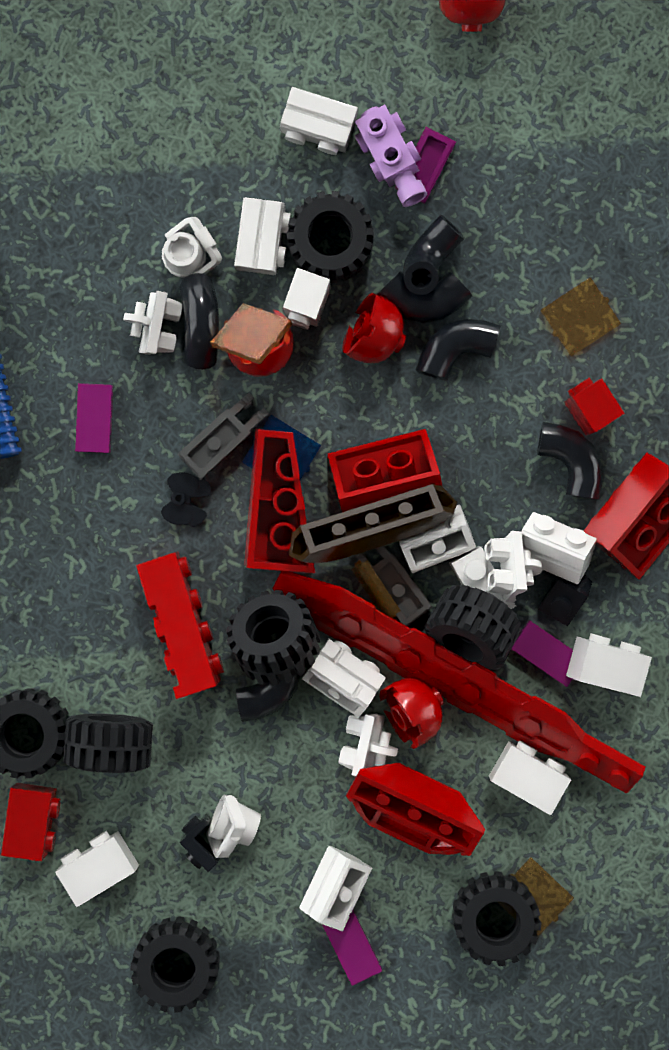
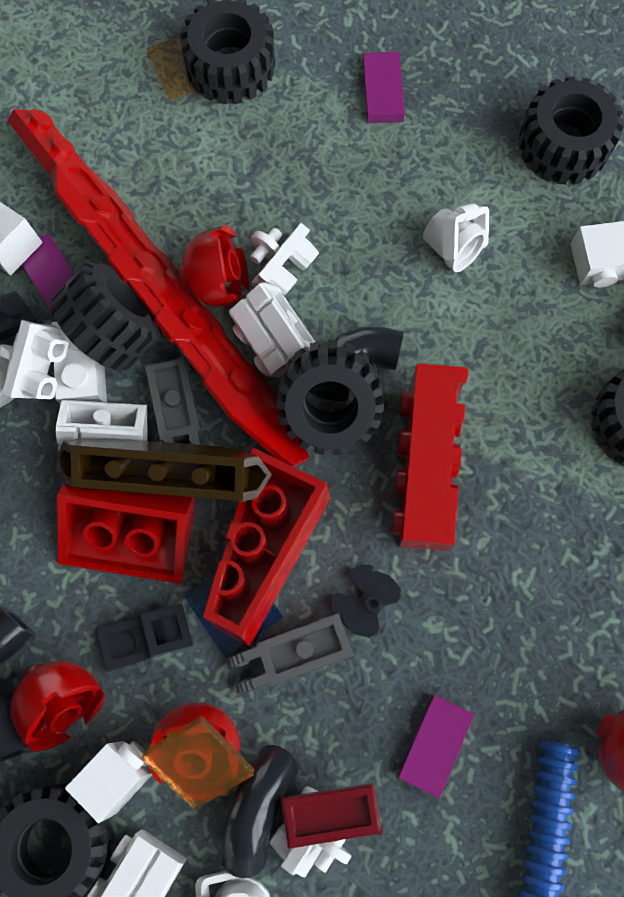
camera: 160 degrees left, 15 degrees down
(108, 743) = (562, 360): black tyre -> none
(146, 339) = (331, 815): none -> dark red tile
(198, 849) = (502, 232): black bracket -> none
(335, 403) = (144, 637): none -> black slope
(335, 888) = (376, 135): white brick -> none
(375, 588) = (195, 405): clear orange piece -> none
(415, 809) = (255, 173): red wedge -> none
(530, 777) = (130, 162): white brick -> none

